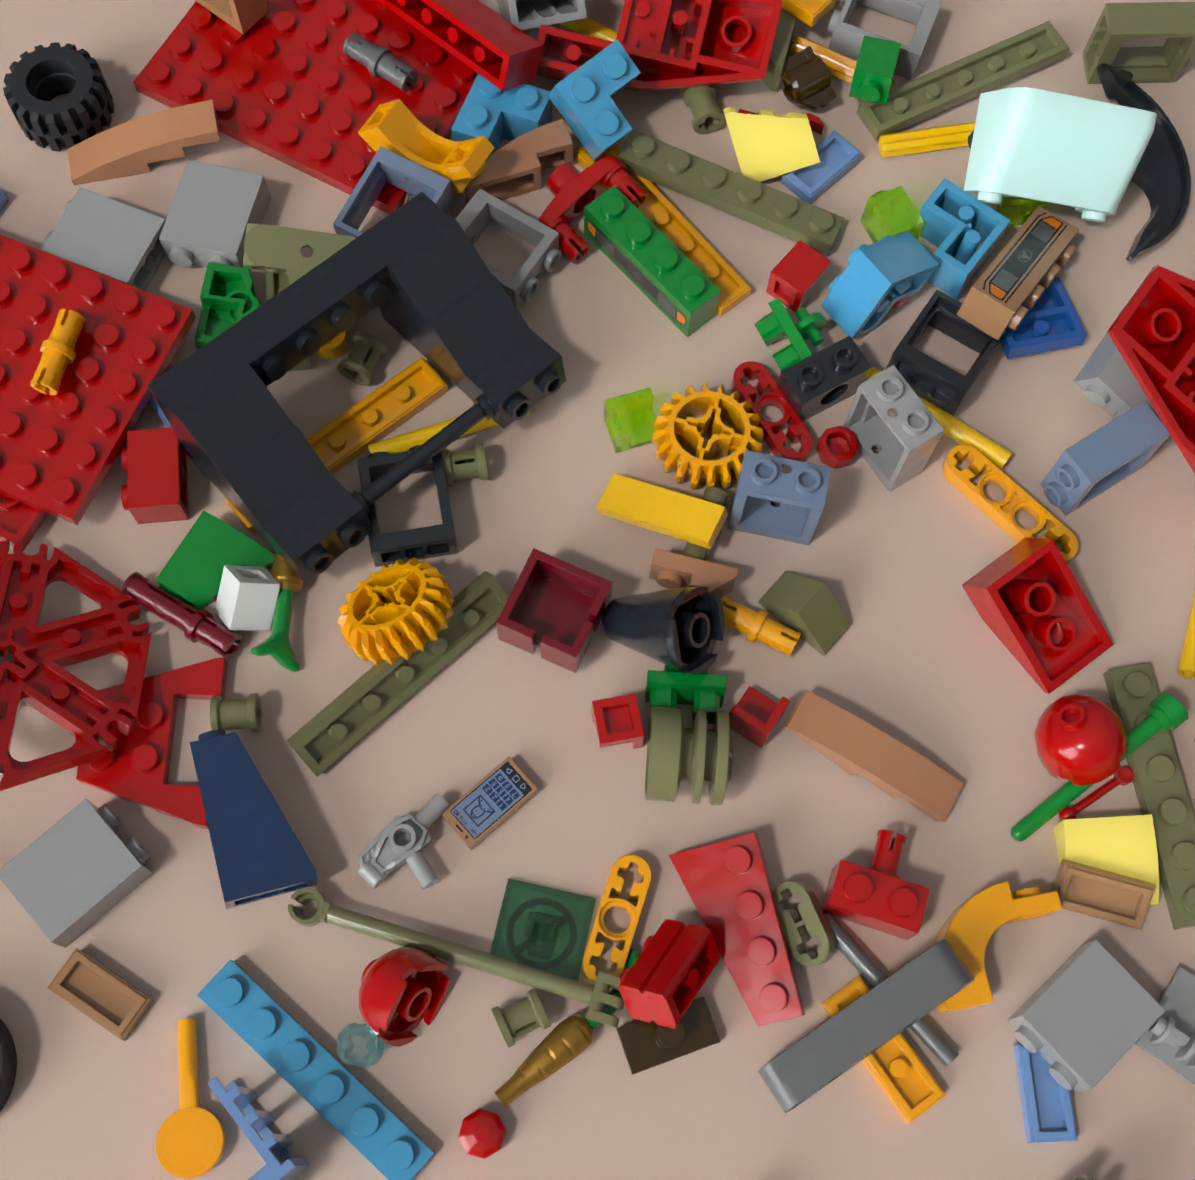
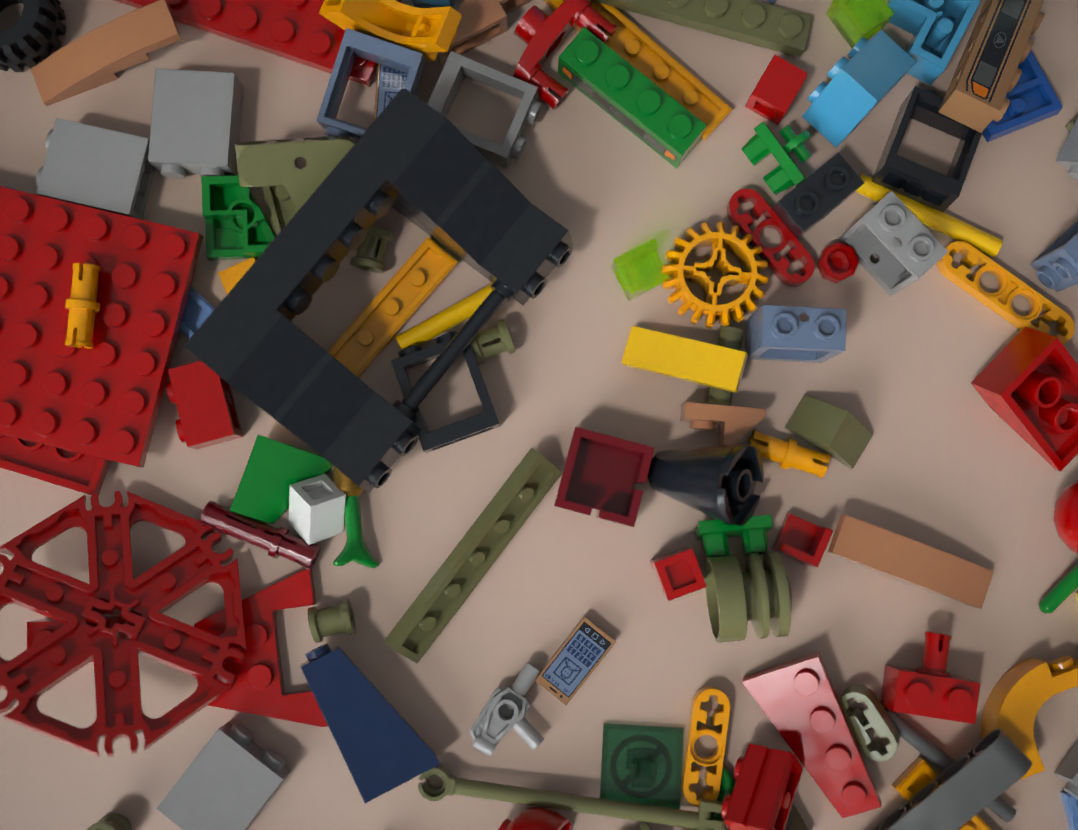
camera: 10 degrees left, 15 degrees up
(396, 611) = (450, 528): light orange gear -> none

